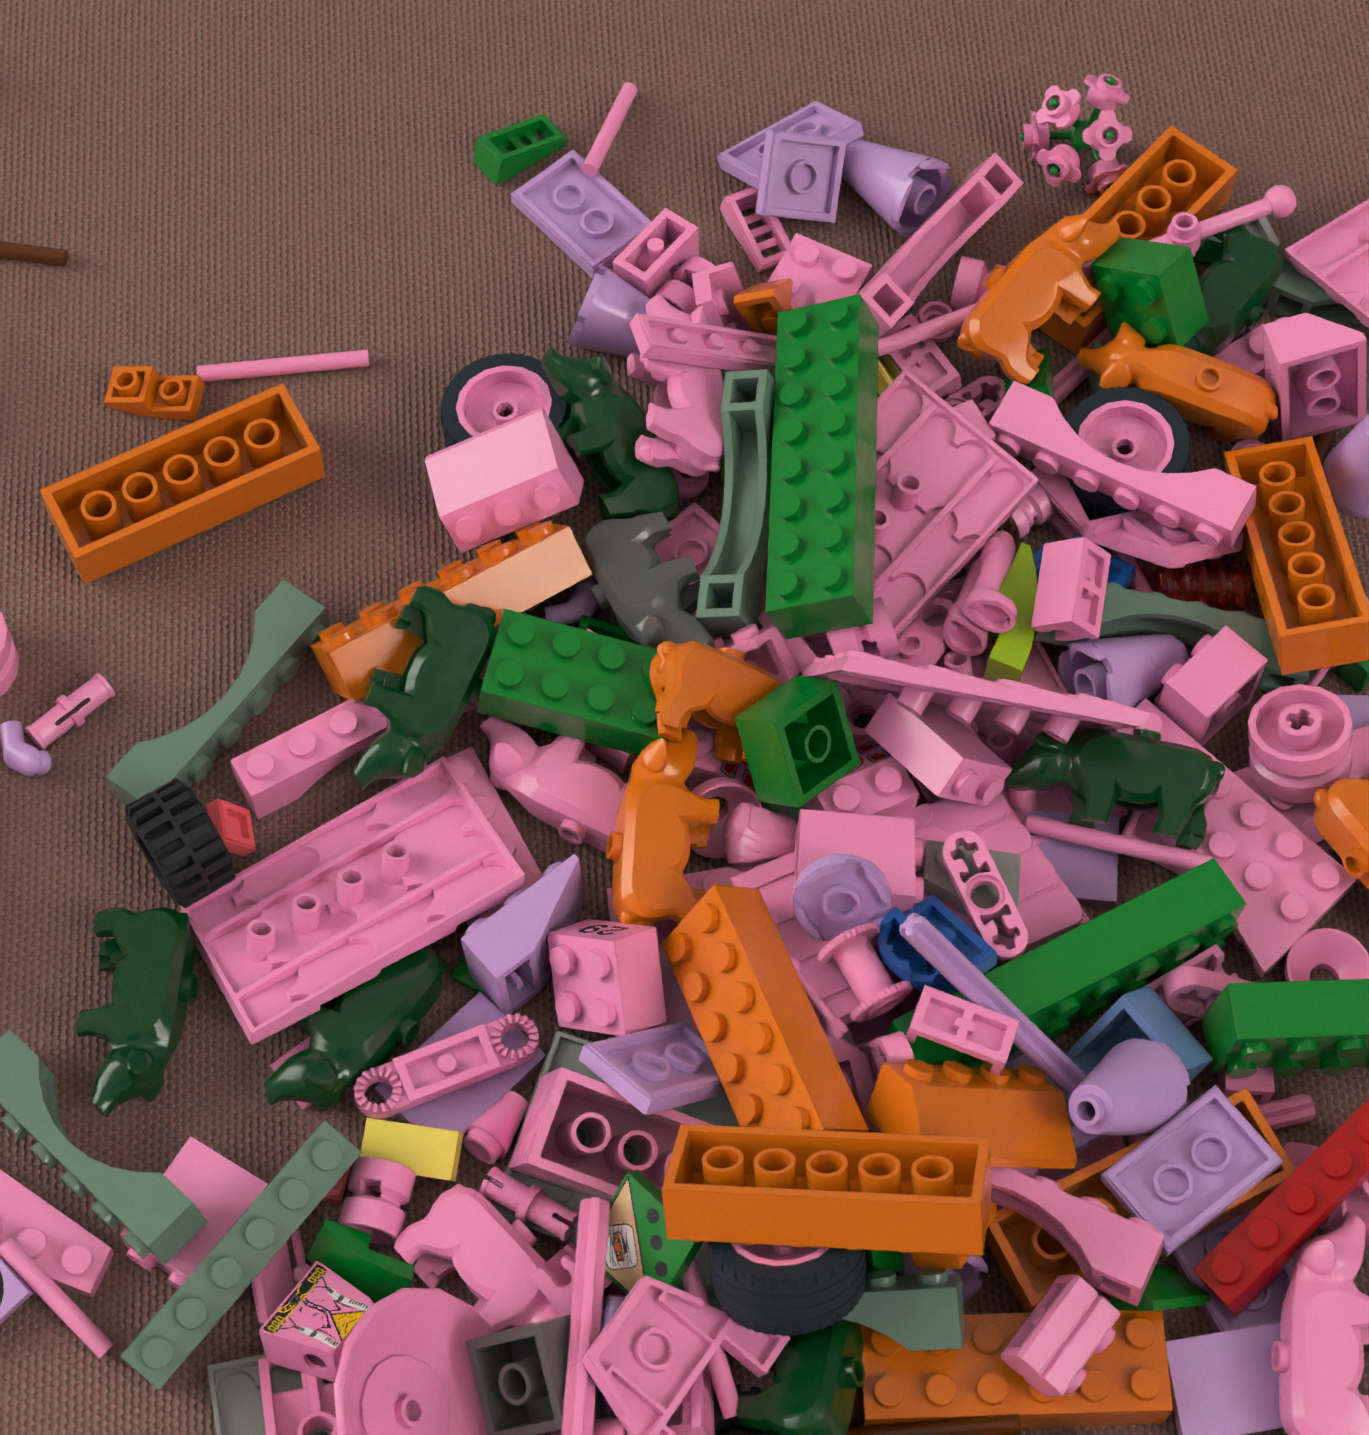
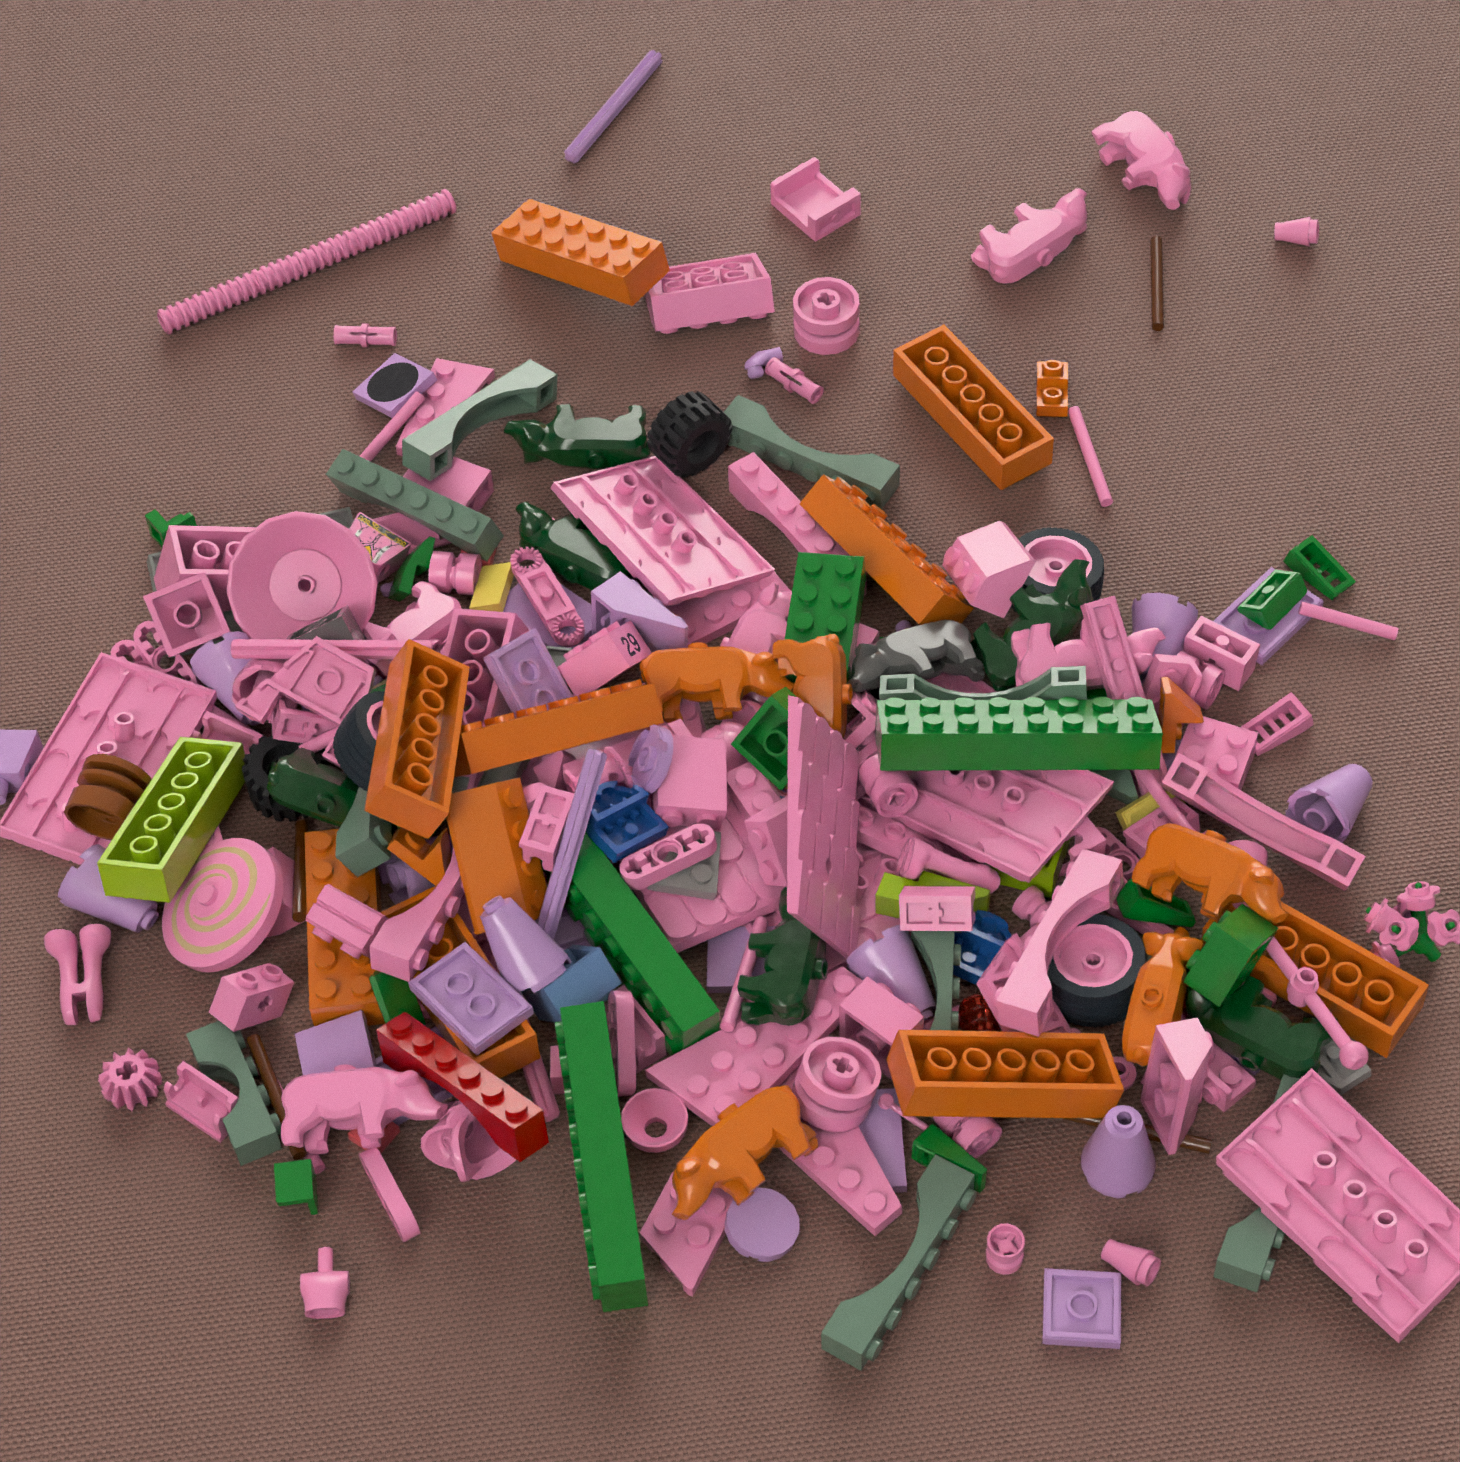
camera: 90 degrees right, 10 degrees down
(233, 825) = (713, 469): coral tile -> none
(434, 686) = (804, 529): dark green animal -> none
(567, 196) = (1273, 598): none -> green slope
(746, 157) = (1356, 733): lavender tile -> none
(800, 176) = (1316, 733): lavender tile -> none
(834, 1025) = (558, 767): bright pink hinge -> none

